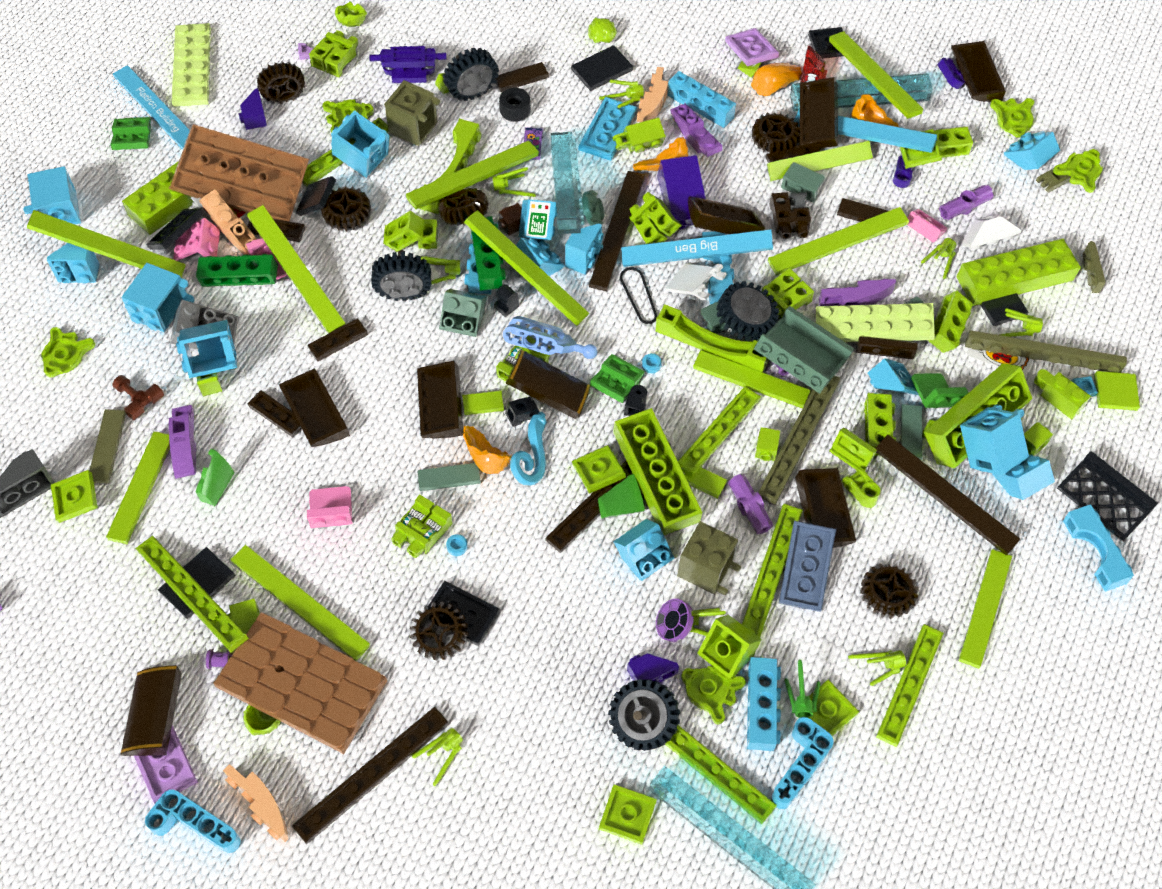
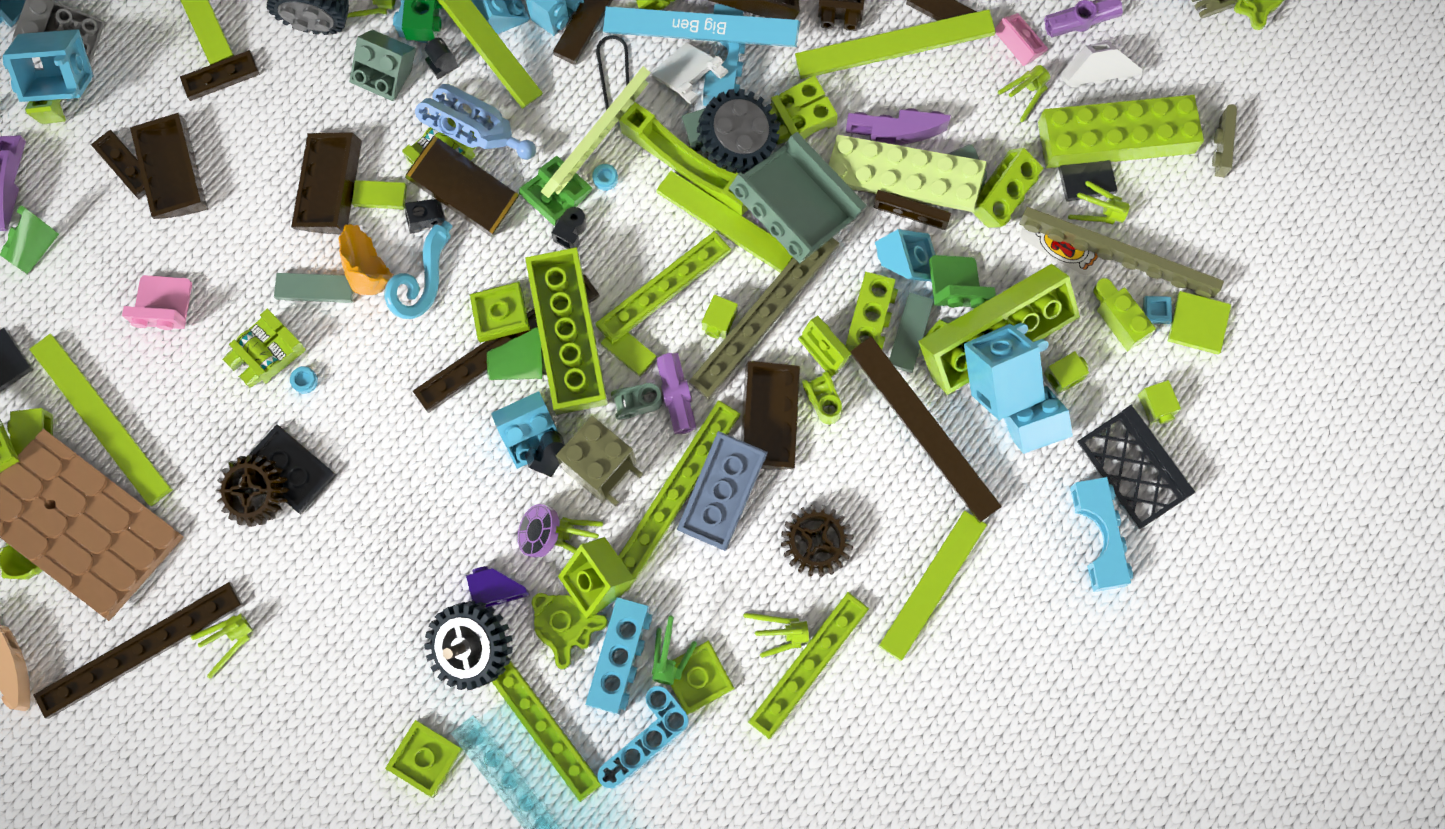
camera: 15 degrees right, 15 degrees up
(642, 330) = (597, 133): none -> yellowish green plate
(667, 561) = (544, 458): none -> black leg
(719, 516) = (635, 401): none -> sand green piece
(1109, 447) = (1159, 402): none -> lime brick

